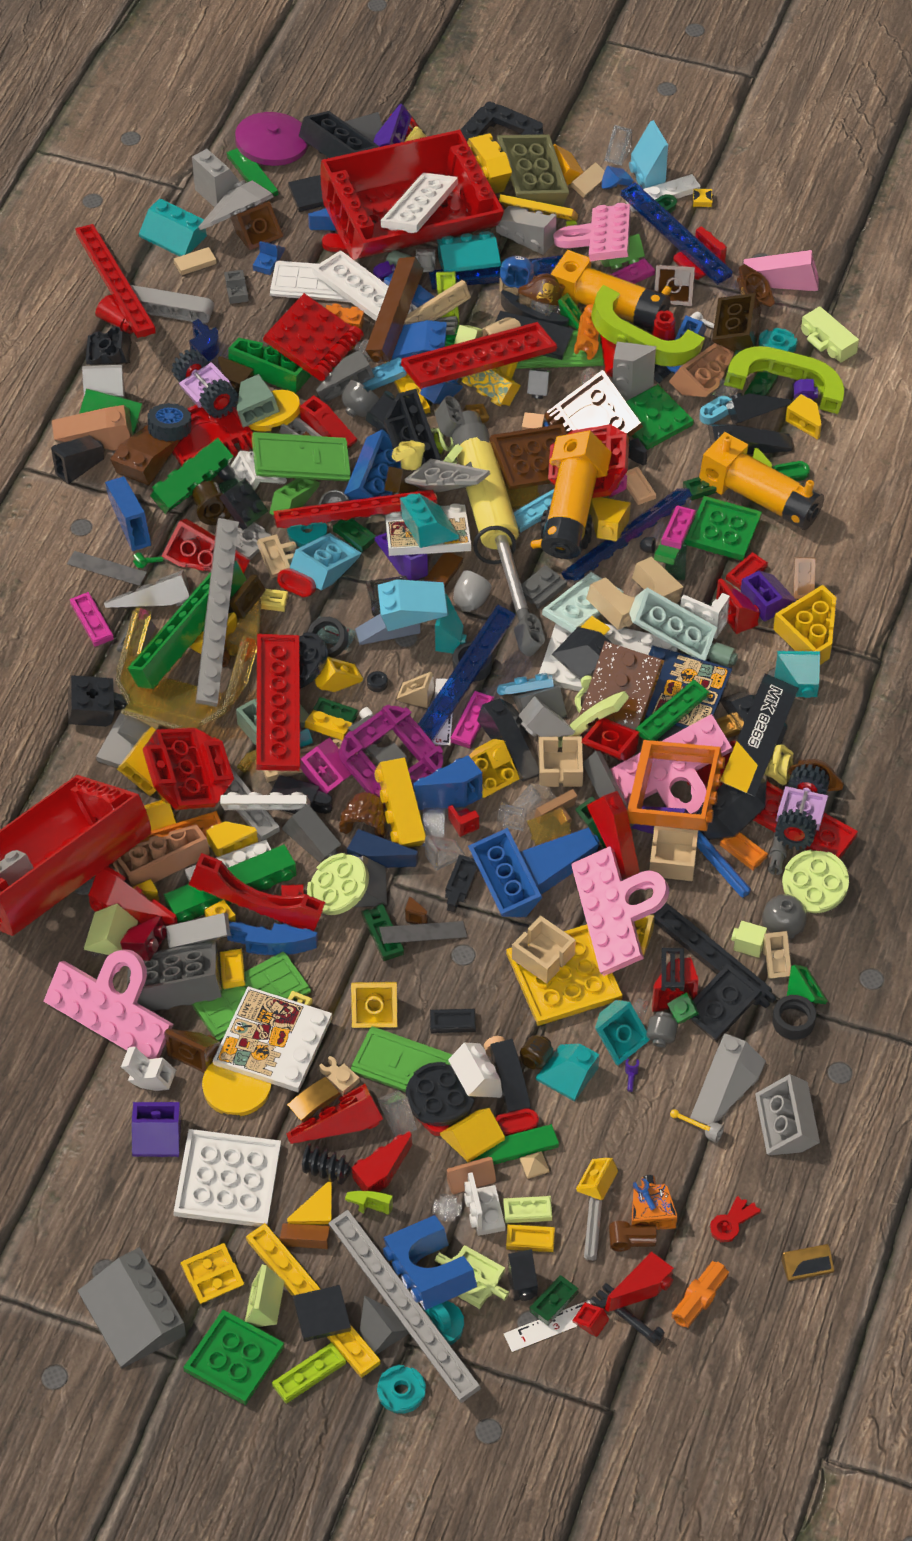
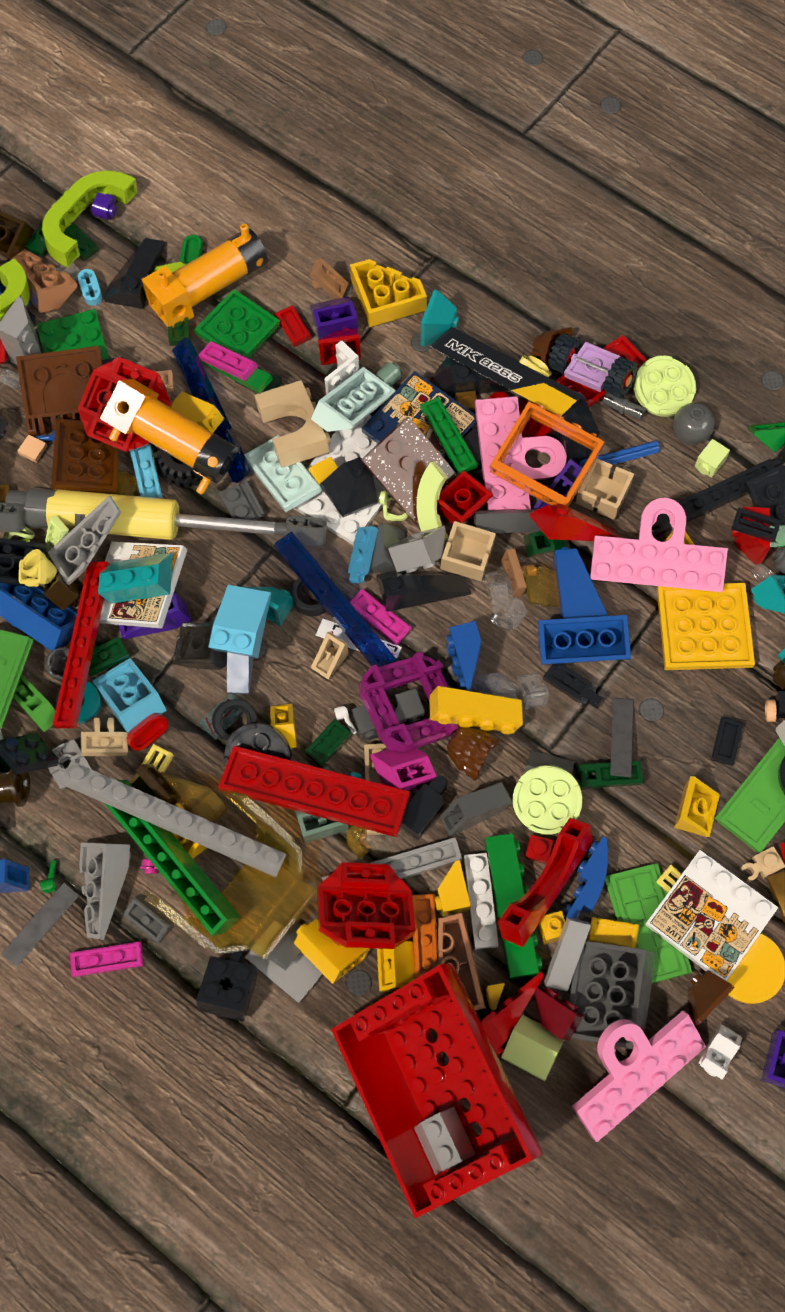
camera: 70 degrees left, 15 degrees up
(194, 548) = (59, 820): red wedge -> none
(257, 801) = (428, 848): white plate -> none
(327, 724) = (346, 752): yellow plate -> none
(377, 681) = (300, 691): black tile -> none
(382, 850) = (512, 756): dark blue slope -> none
(415, 912) = (596, 738): reddish brown slope -> none
(445, 568) = (196, 597): reddish brown tile -> none
(463, 820) = (500, 661): red panel -> none
(471, 591) = (230, 568): light grey piece -> none
(488, 529) = (170, 526): black tyre -> none
(495, 765) = (444, 610): yellow slope -> none
(546, 951) = (687, 633): tan piece -> none
(648, 544) = (230, 396): black hinge -> none
(744, 850) = (613, 430): orange tile -> none
(752, 405) = (105, 257): black slope -> none
(777, 954) = (740, 441): tan slope -> none
(778, 339) = (36, 215): teal tile -> none
(805, 416) = (135, 215): yellow slope -> none
(829, 334) = (44, 164): yellowish green piece -> none

